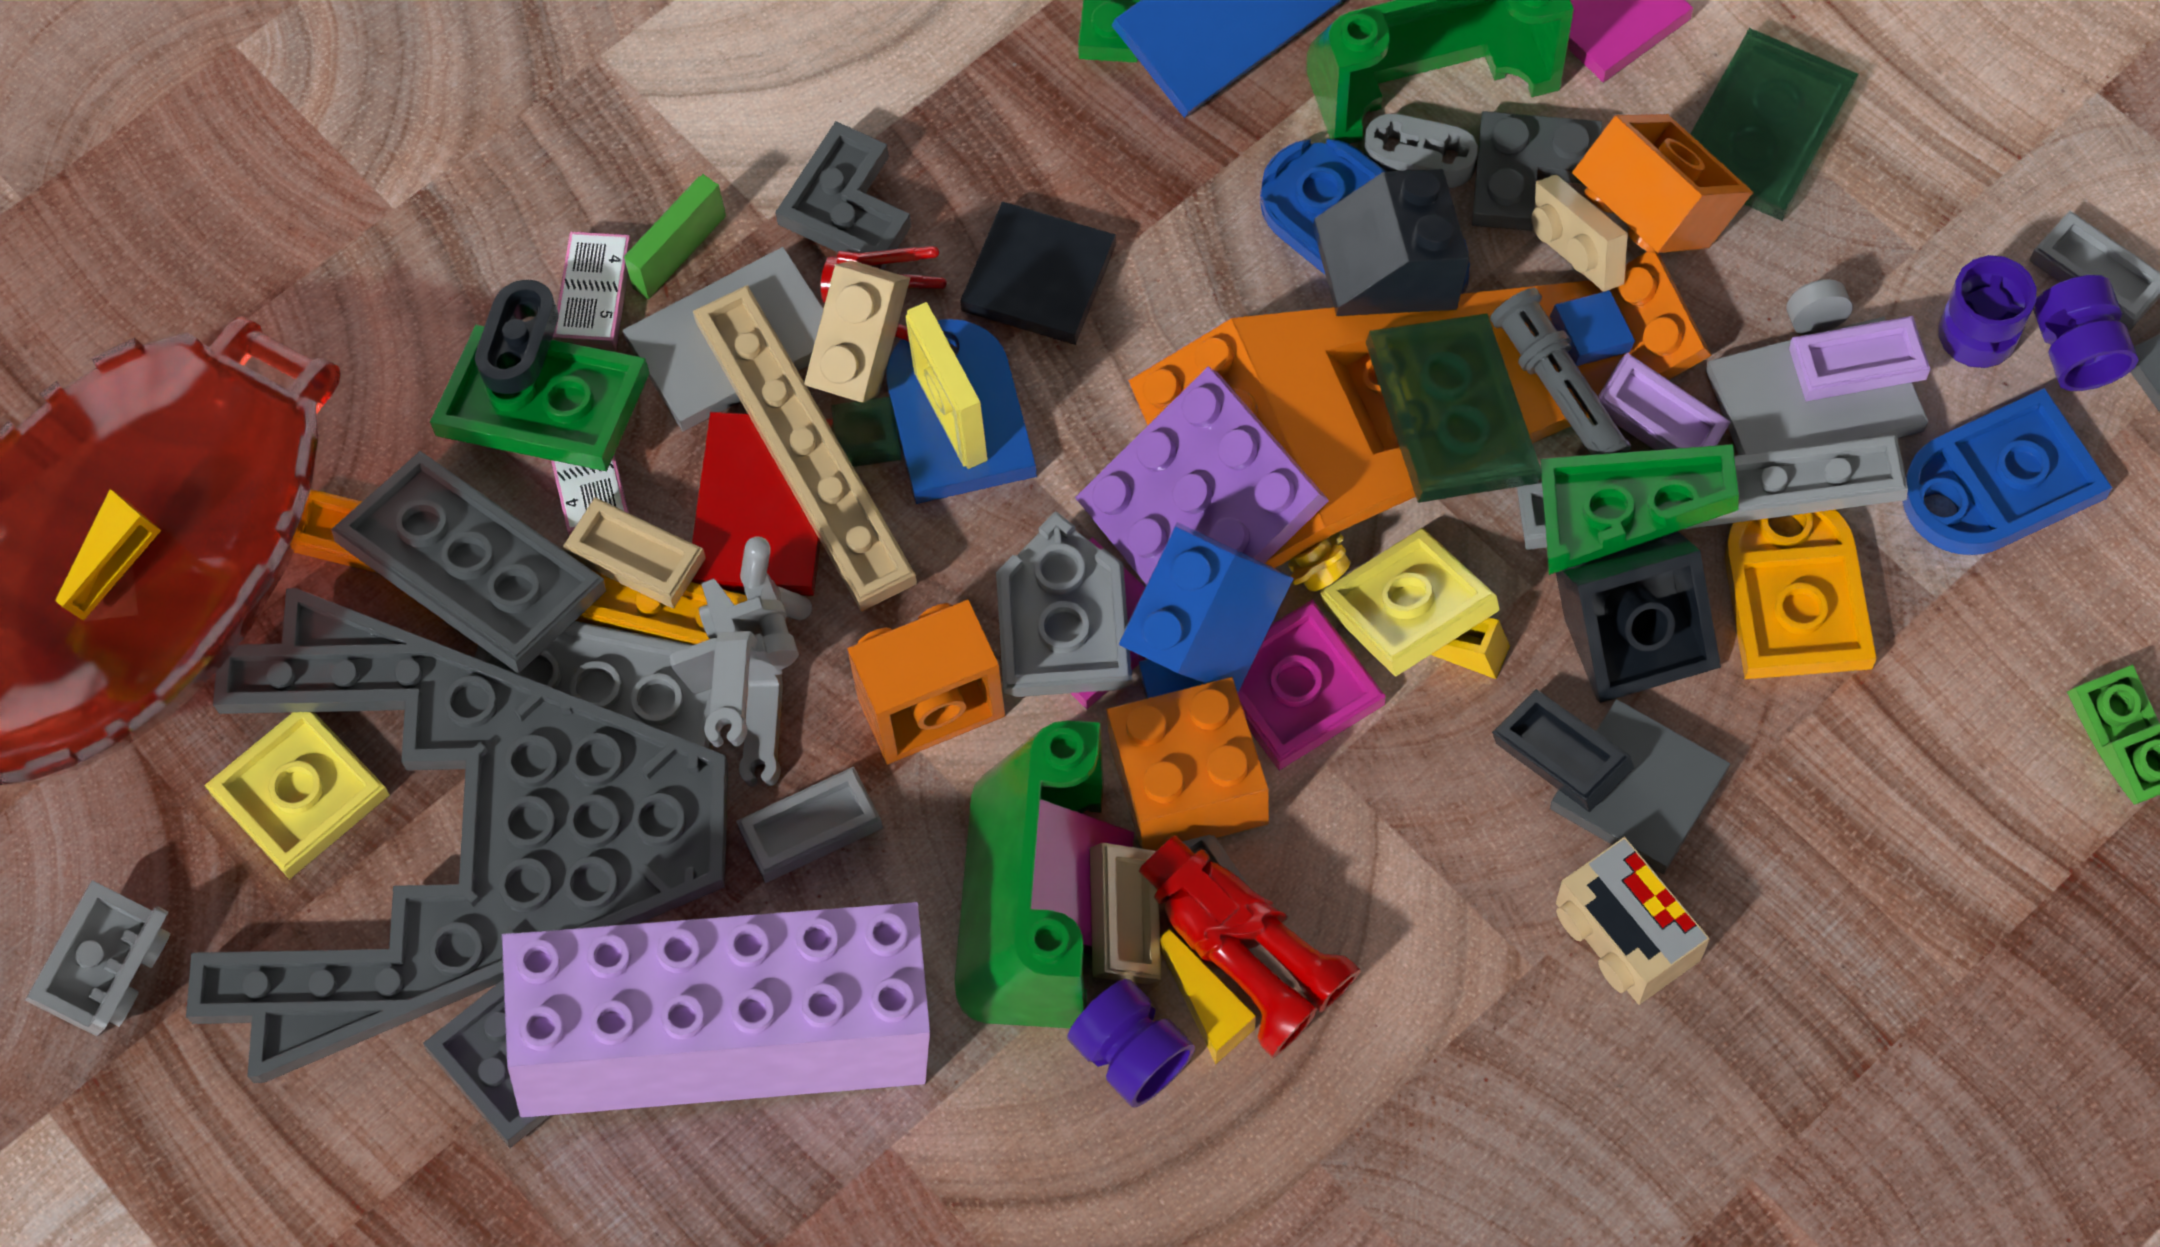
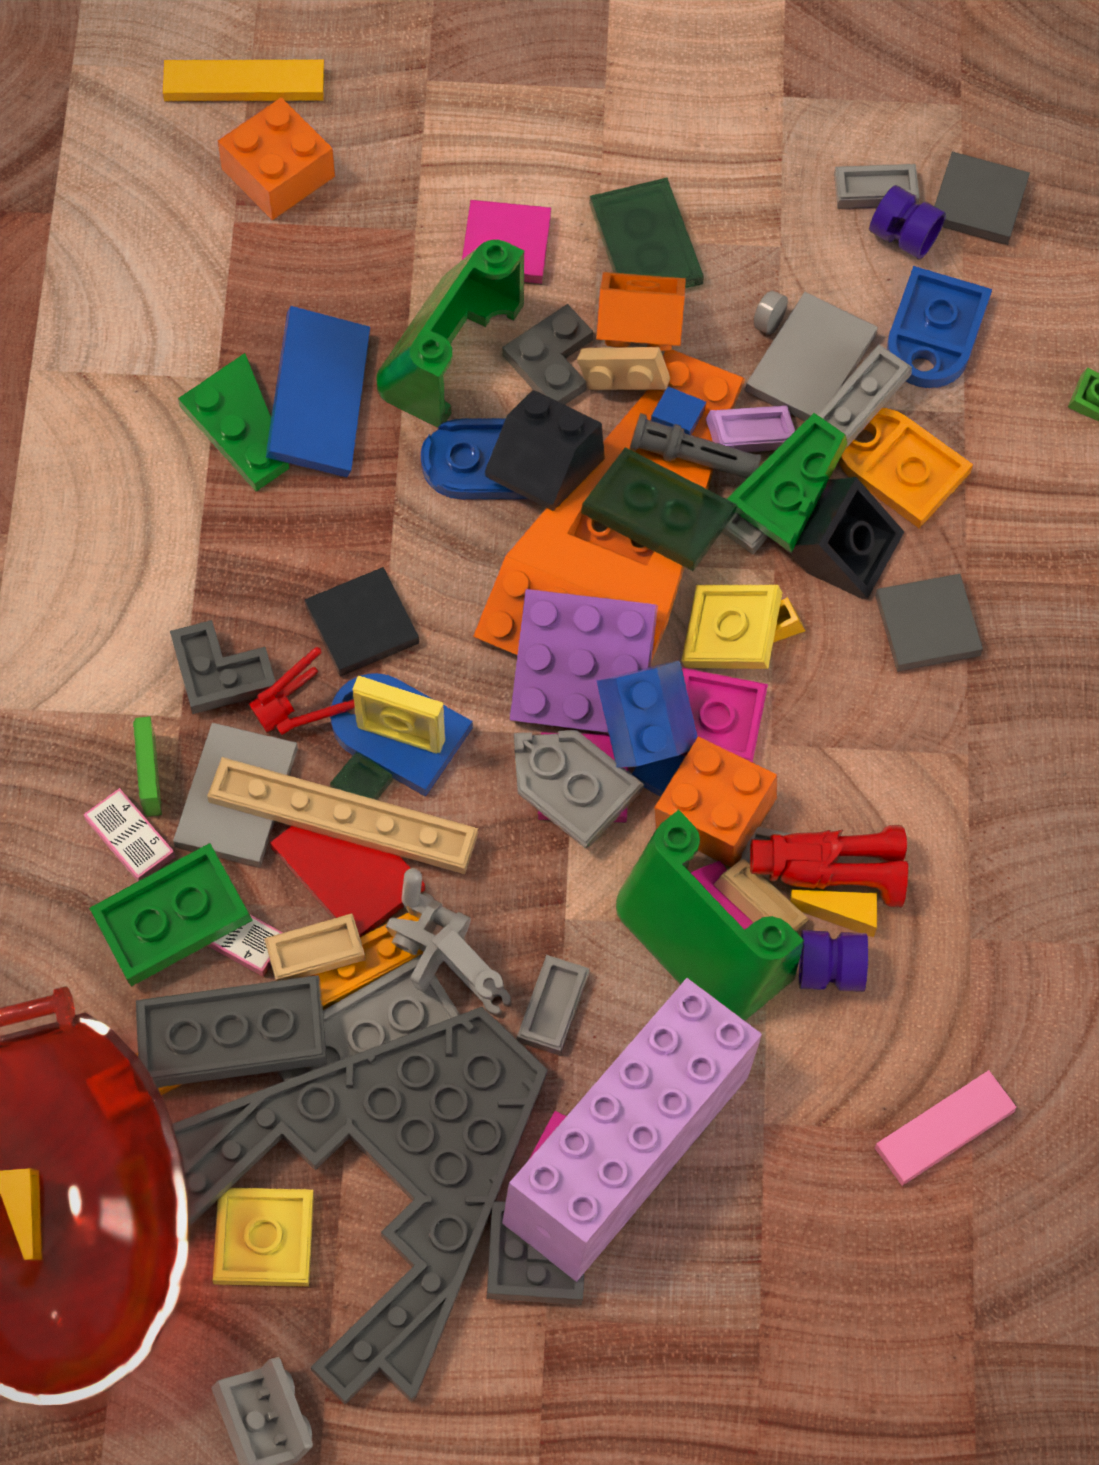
camera: 50 degrees left, 0 degrees up
(513, 342) = (132, 893): black plate -> none
(856, 331) = (314, 728): tan brick -> none
(927, 680) = (546, 874): orange brick -> none
(1320, 564) = (671, 646): yellow plate -> none
(1421, 146) = (489, 390): light grey beam -> none
(1563, 750) = (879, 635): black tile -> none
(1630, 922) = (996, 689): brick -> none
(1859, 358) = (817, 322): lavender tile -> none
(1987, 311) = (853, 248): dark purple wheel -> none

